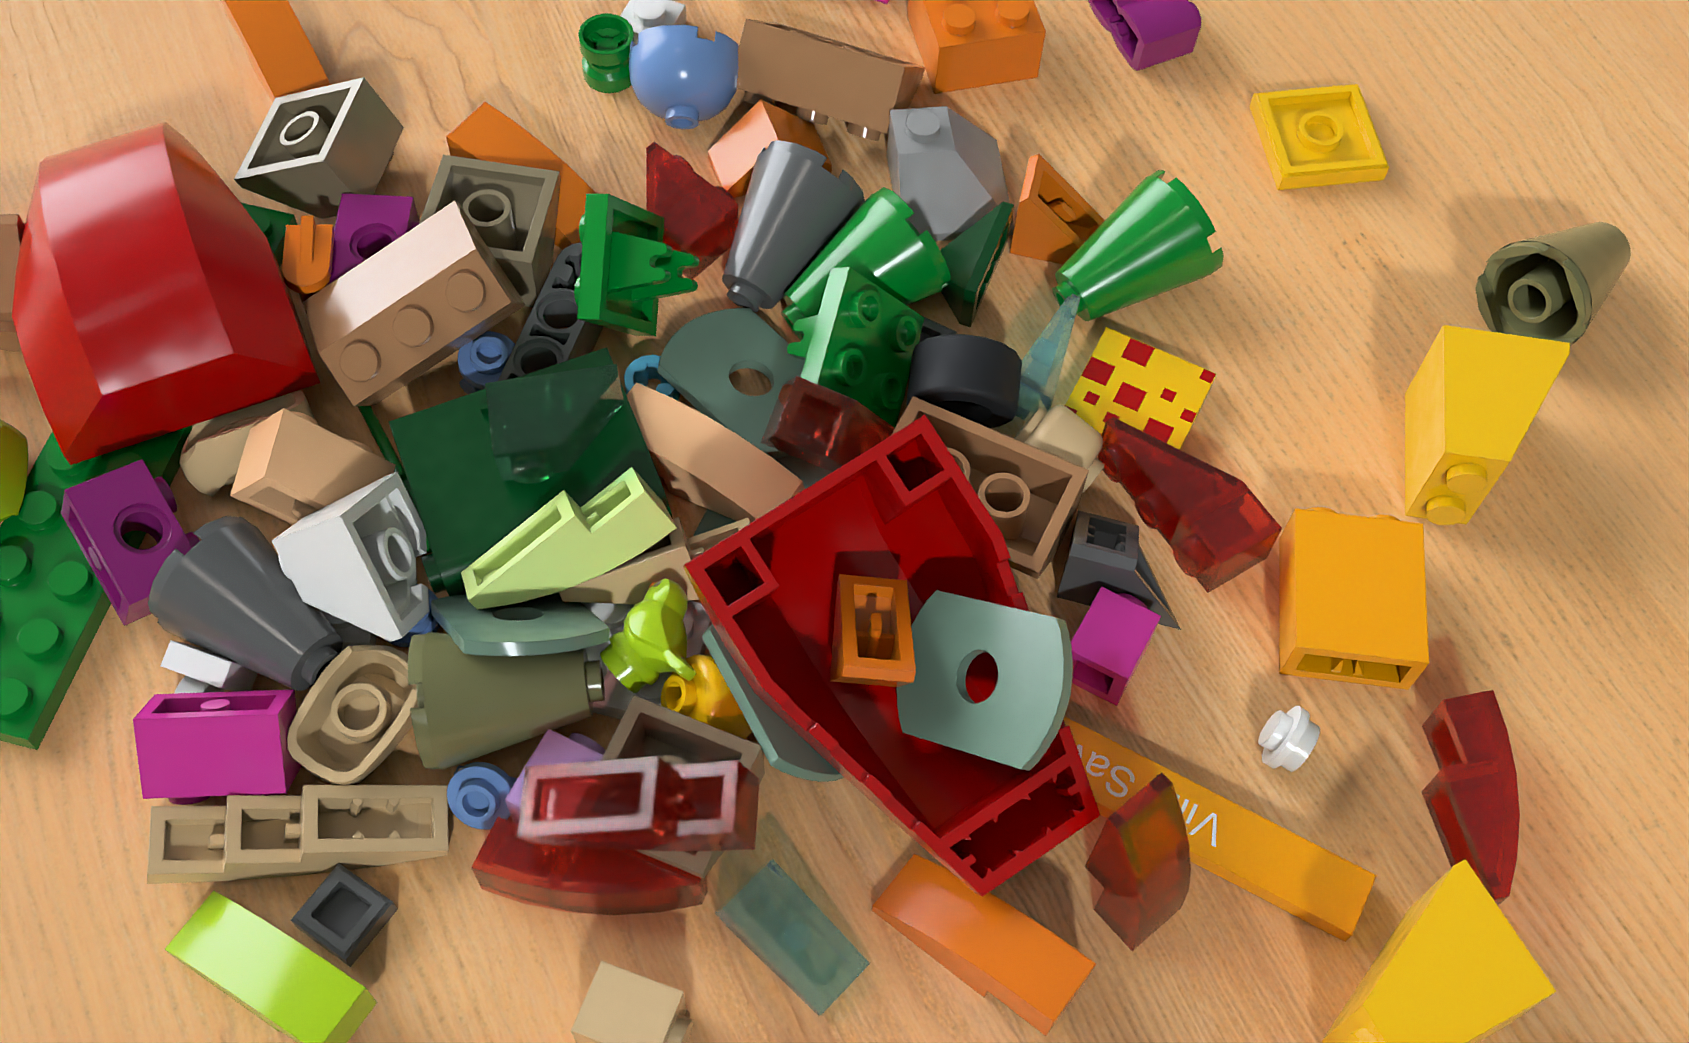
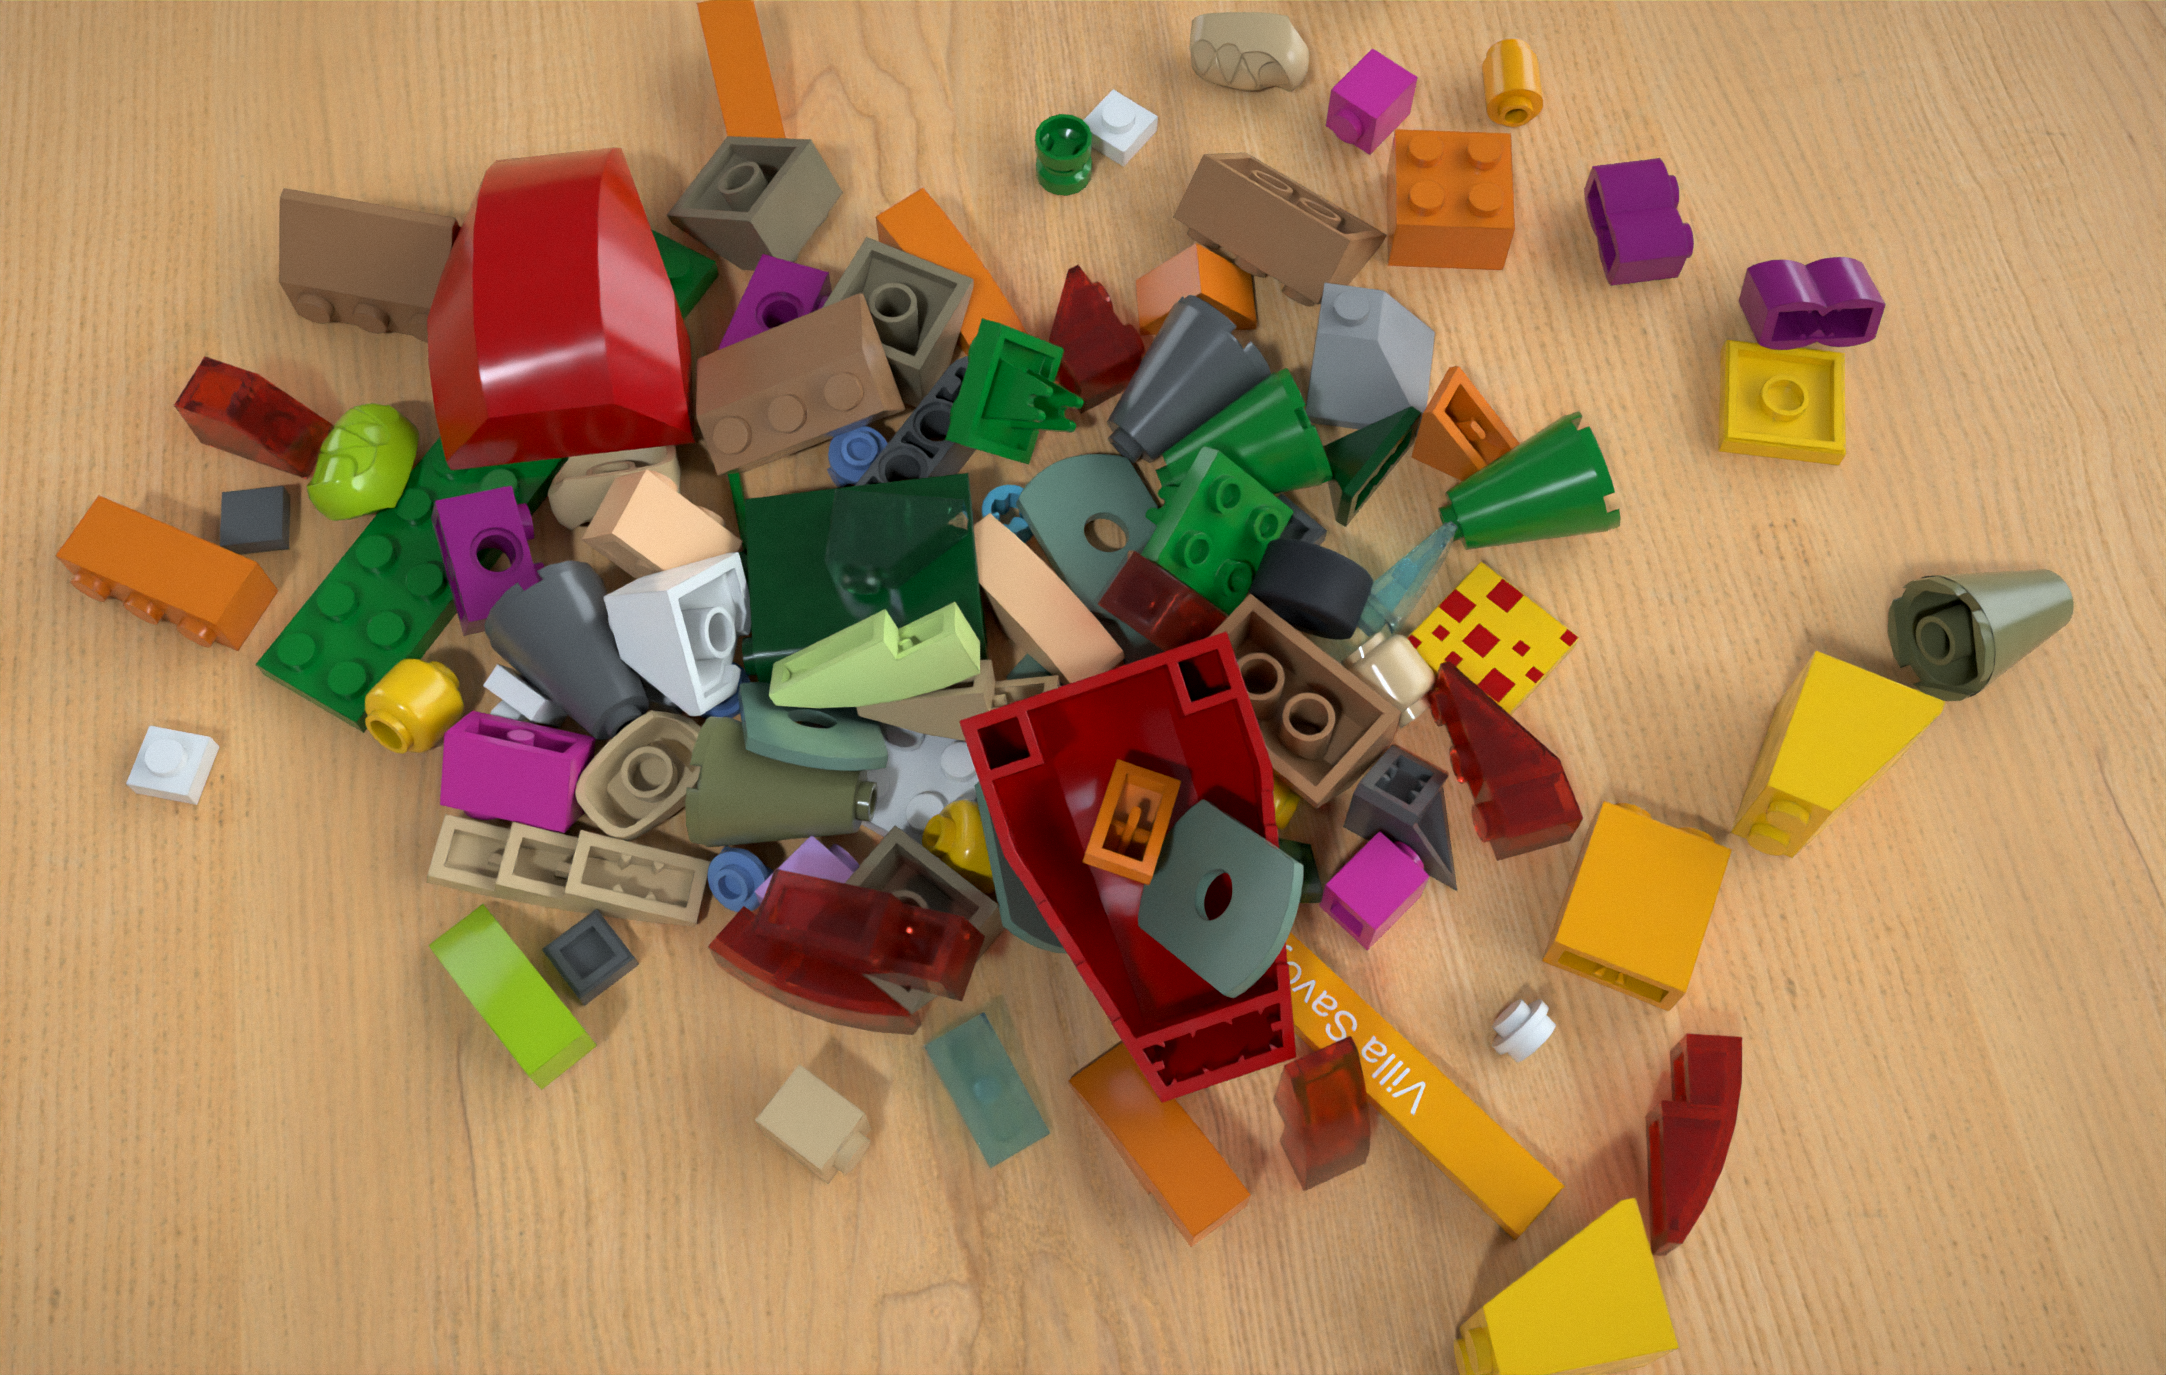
camera: 20 degrees right, 5 degrees up
(87, 707) = (413, 706): none -> yellow head
(307, 256) = (712, 314): orange piece -> none
(651, 639) = (927, 776): lime animal -> none
(682, 74) = (1129, 198): medium blue cylinder -> none
(1318, 46) = (1811, 303): none -> magenta brick

